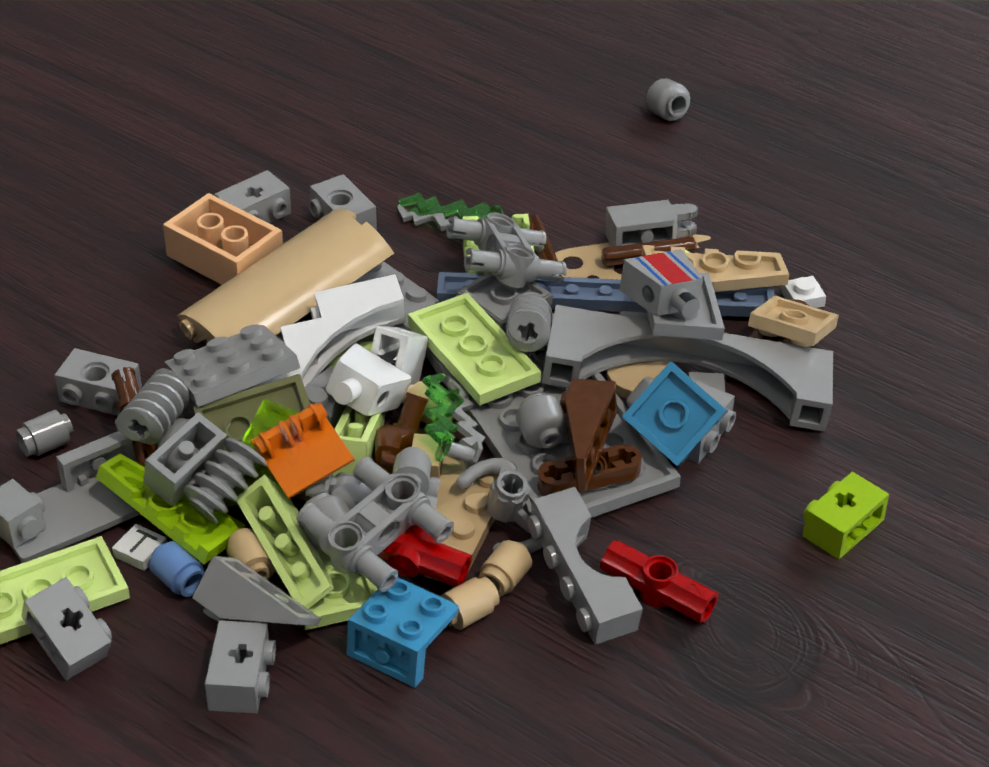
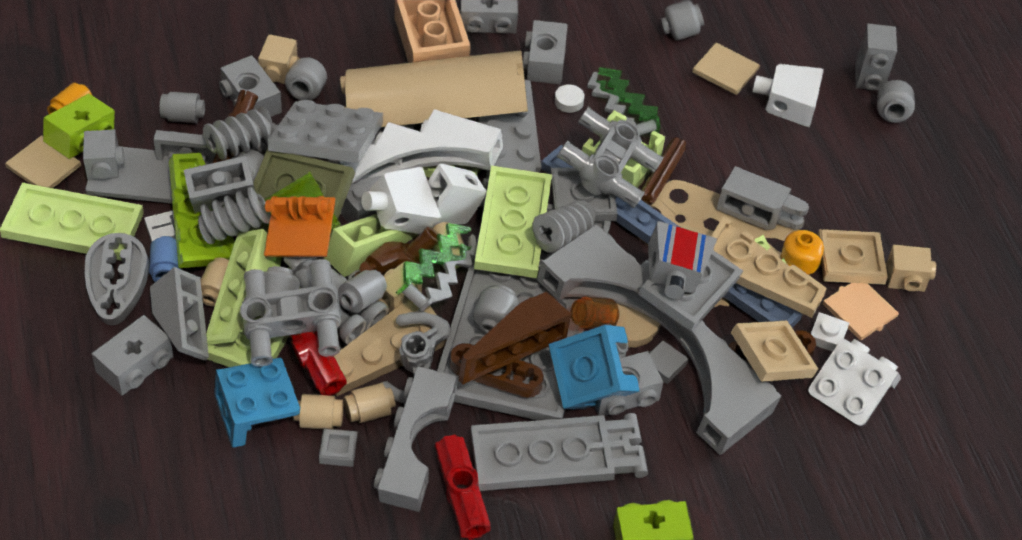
camera: 35 degrees right, 10 degrees up
(67, 648) = (46, 243): light grey brick -> none
(97, 336) = (278, 57): none -> tan brick
(124, 614) = (100, 271): none -> light grey piece
(144, 344) = (306, 79): none -> light grey head
(400, 236) = (569, 98): none -> white tile
(432, 126) = (682, 20): none -> light grey head
(505, 146) = (726, 68): none -> tan piece
(512, 623) = (338, 447): none -> light grey tile
(582, 135) = (791, 92): none -> white torso
(615, 255) = (715, 212): reddish brown axle -> none
(623, 72) = (875, 56): none -> light grey brick
(626, 373) = (594, 311): none -> clear orange brick
(702, 505) = (556, 451): none -> light grey hinge
(725, 236) = (803, 250): none -> light orange head
(759, 228) = (853, 257): none -> tan tile
(809, 261) = (861, 308): none -> light nougat piece
(812, 211) = (910, 268): none -> tan brick
(867, 313) = (854, 381): none -> white bracket

